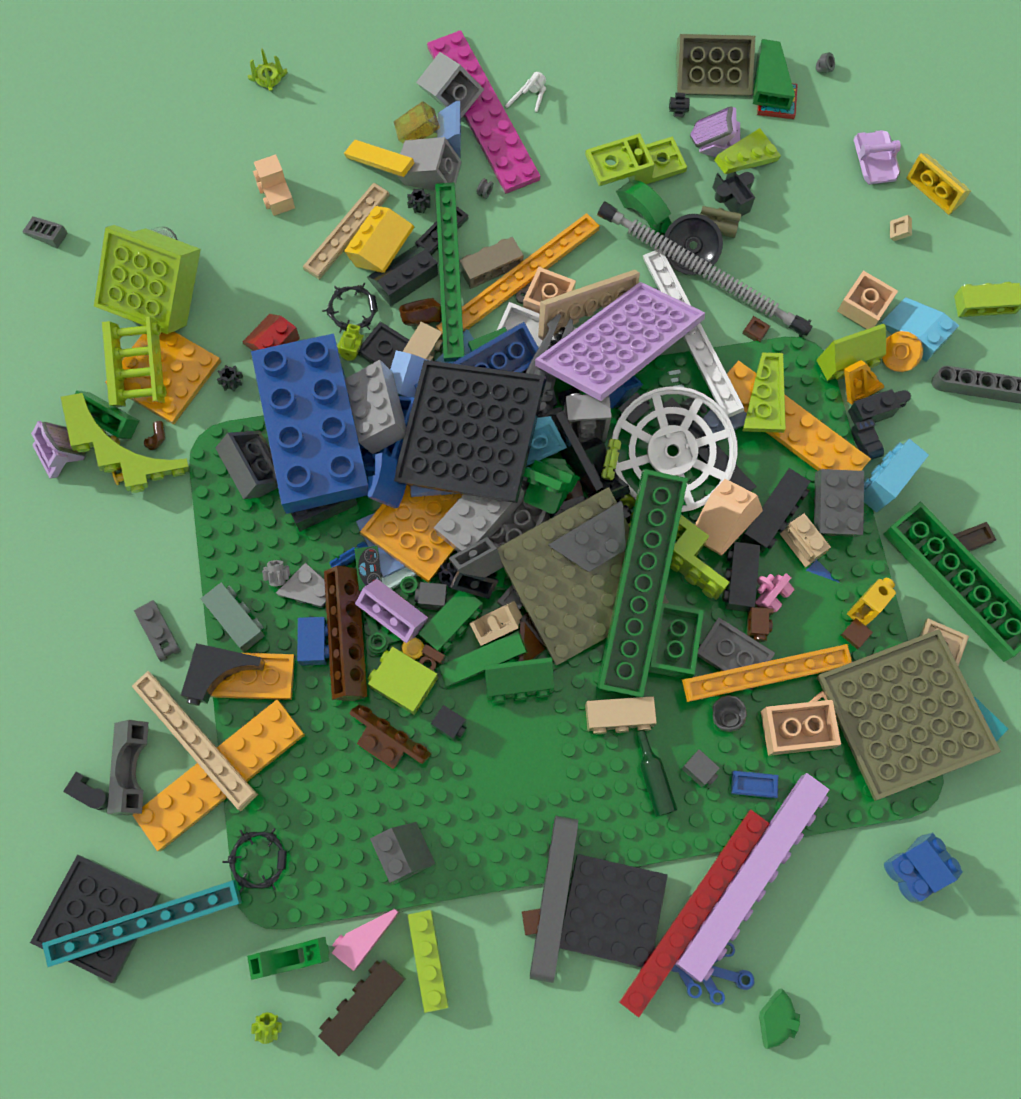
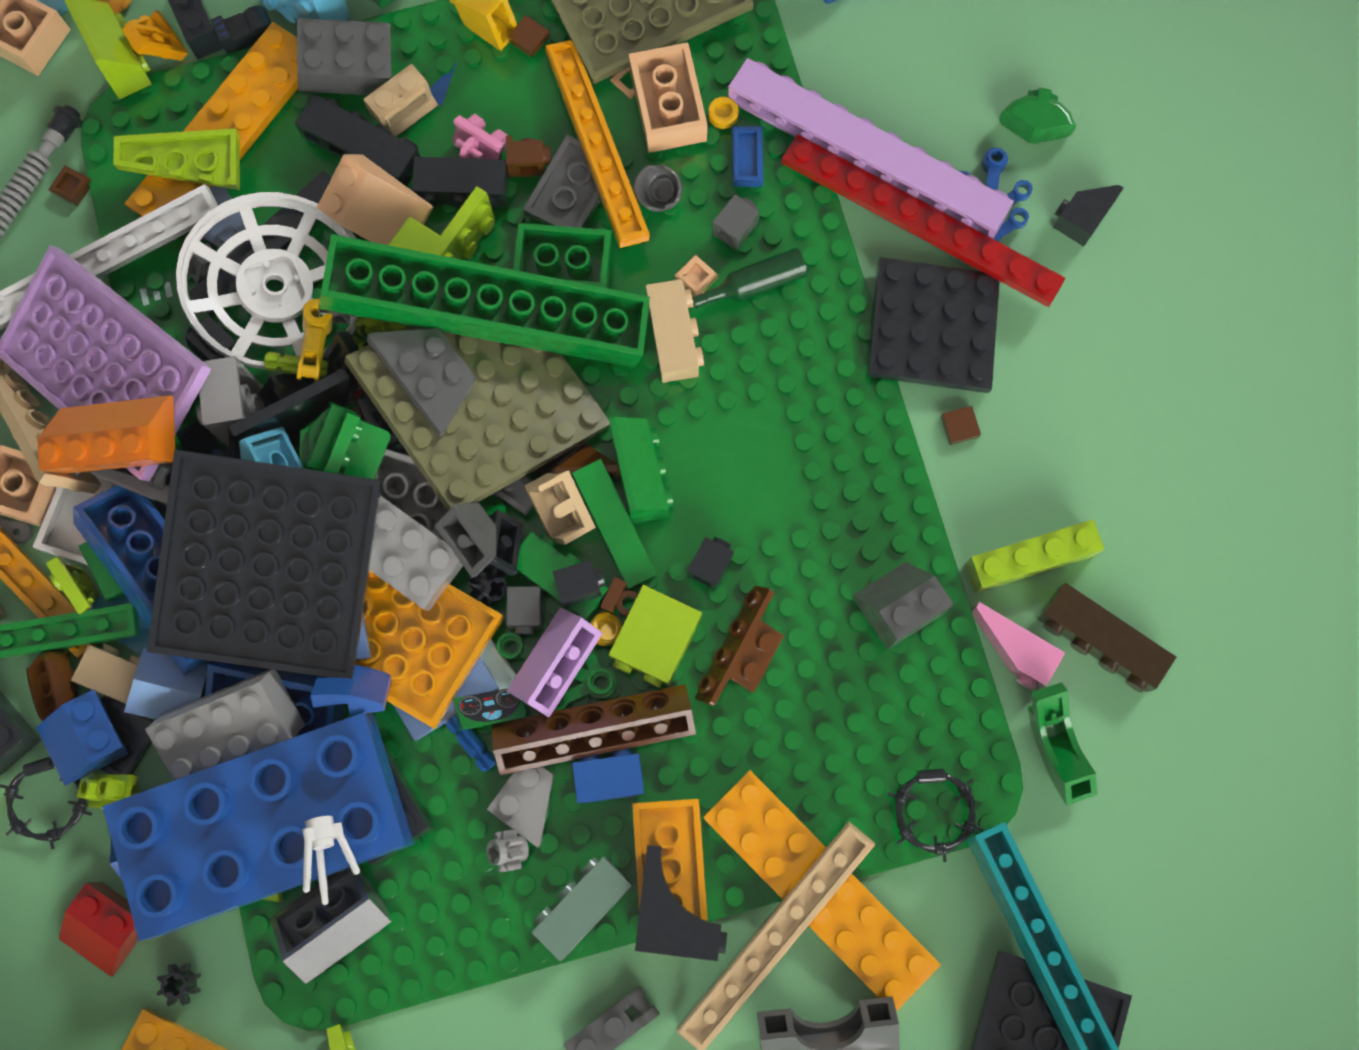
camera: 90 degrees left, 5 degrees up
(266, 1028) = (1154, 763): lime gear -> none
(293, 453) = (320, 835): none -> white plant
(384, 327) = (81, 737): none -> blue slope
(440, 629) = (578, 583): none -> black brick
(480, 324) = (73, 582): none -> lime wing
(554, 899) = (929, 398): dark grey beam -> none
(563, 341) = (109, 436): none -> orange slope
(622, 469) = (313, 343): none -> yellow piece
(662, 736) = (696, 276): none -> light nougat tile
(695, 1046) = (1085, 212): none -> black slope
(790, 770) = (723, 112): none -> yellow tile

